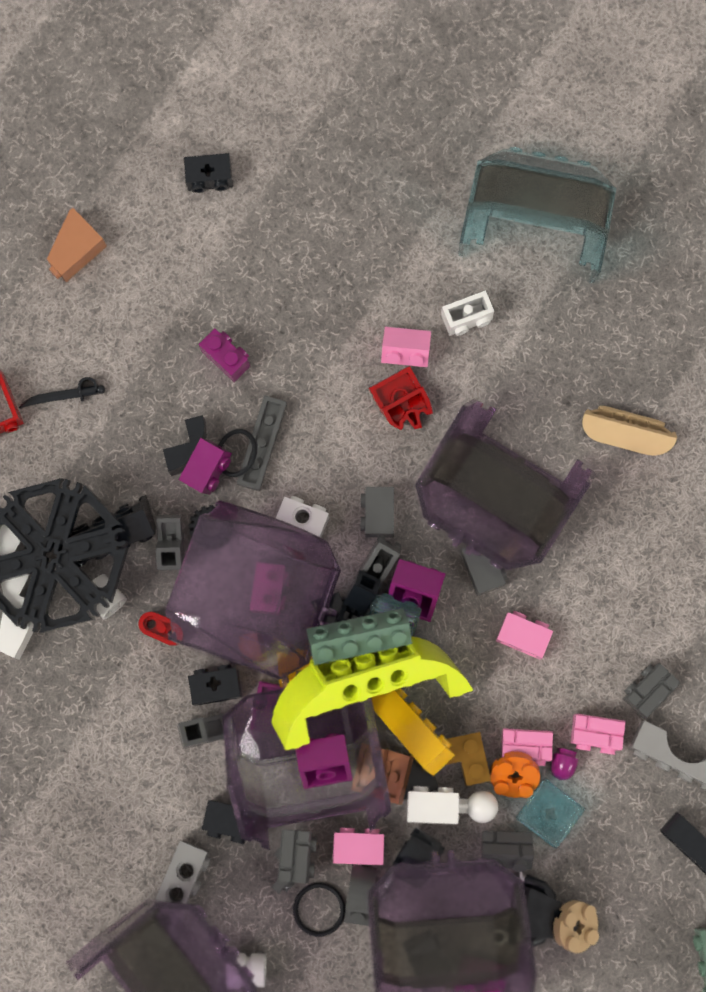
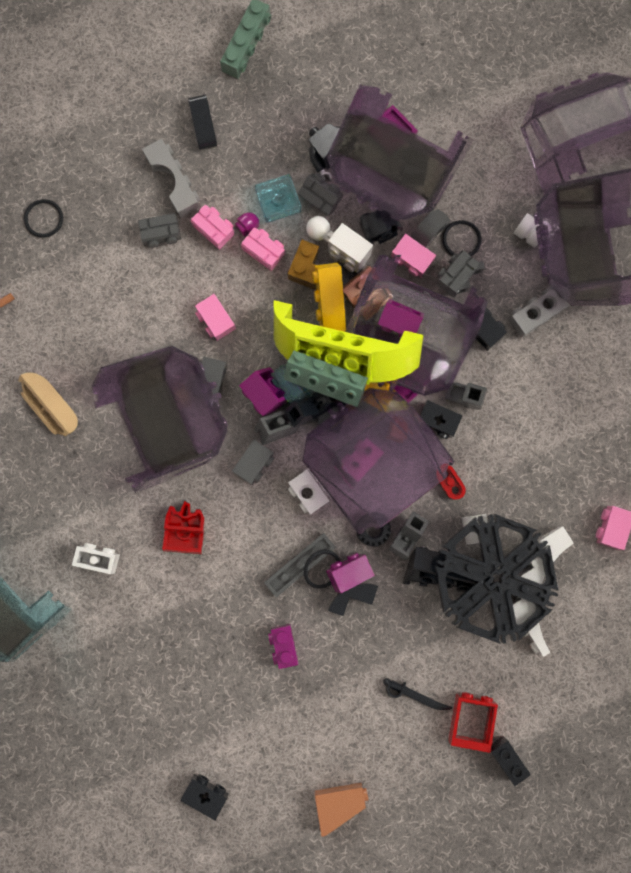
camera: 155 degrees left, 5 degrees up
(406, 346) = (155, 564): bright pink brick -> none
(515, 787) = (291, 238): orange plate -> none
(587, 930) = (309, 122): tan plate -> none

